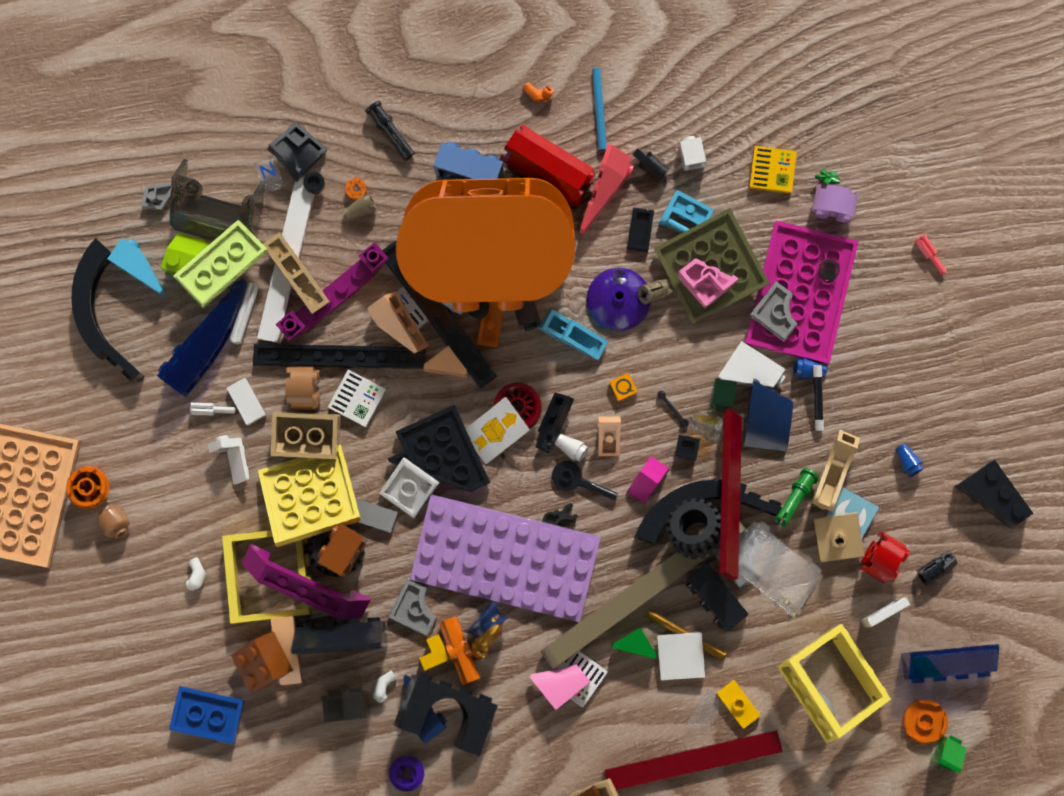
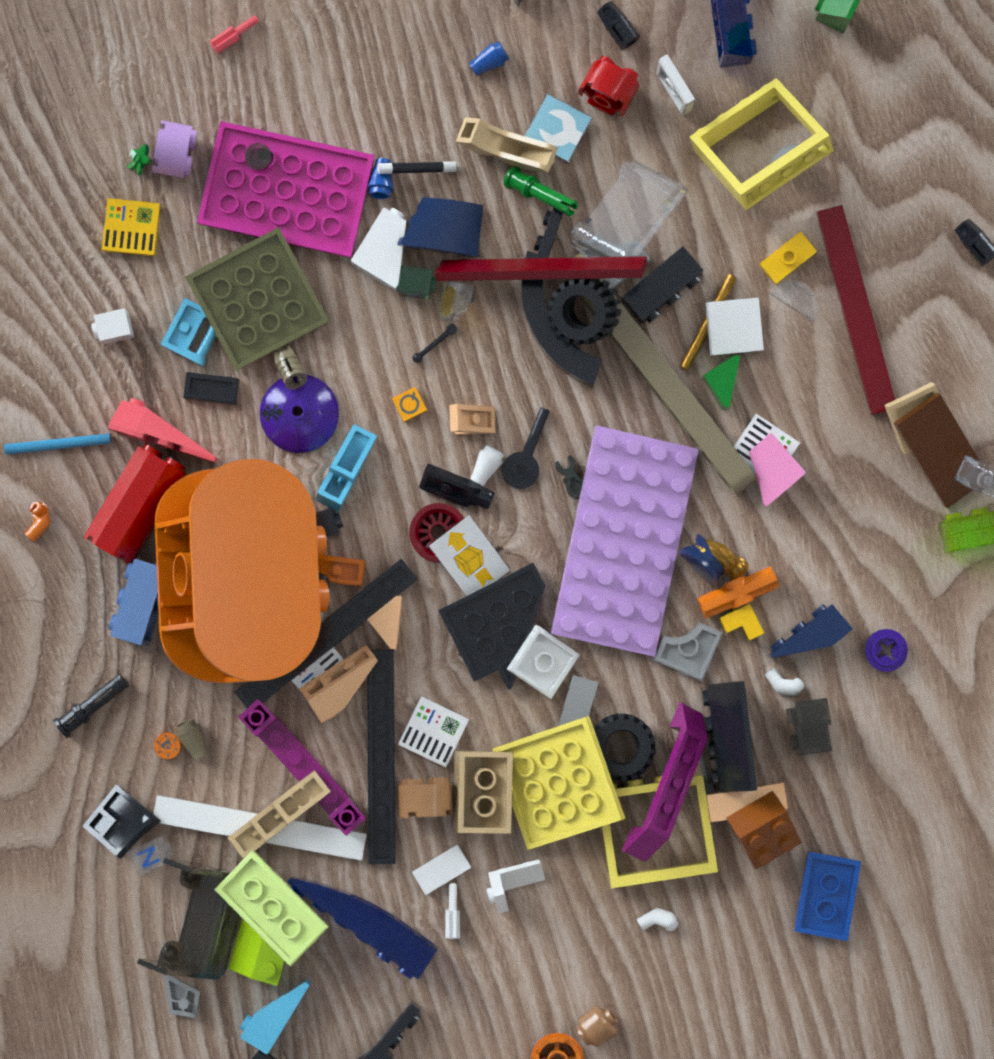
camera: 90 degrees left, 5 degrees up
(244, 313) = (330, 878): white axle -> none
(314, 183) = (161, 798): black tile -> none
(342, 550) = (629, 735): dark orange brick -> none
(476, 711) = (794, 630): black arch -> none
(647, 480) = (523, 371): dark pink slope -> none
(651, 165) = (128, 377): black hinge -> none
(687, 447) = (482, 324): black plate -> none
(705, 282) = (278, 305): bright pink slope -> none
(774, 312) = (313, 221): light grey tile -> none
(839, 537) = (585, 141): tan tile -> none
(925, 721) = (798, 39): orange tile -> none

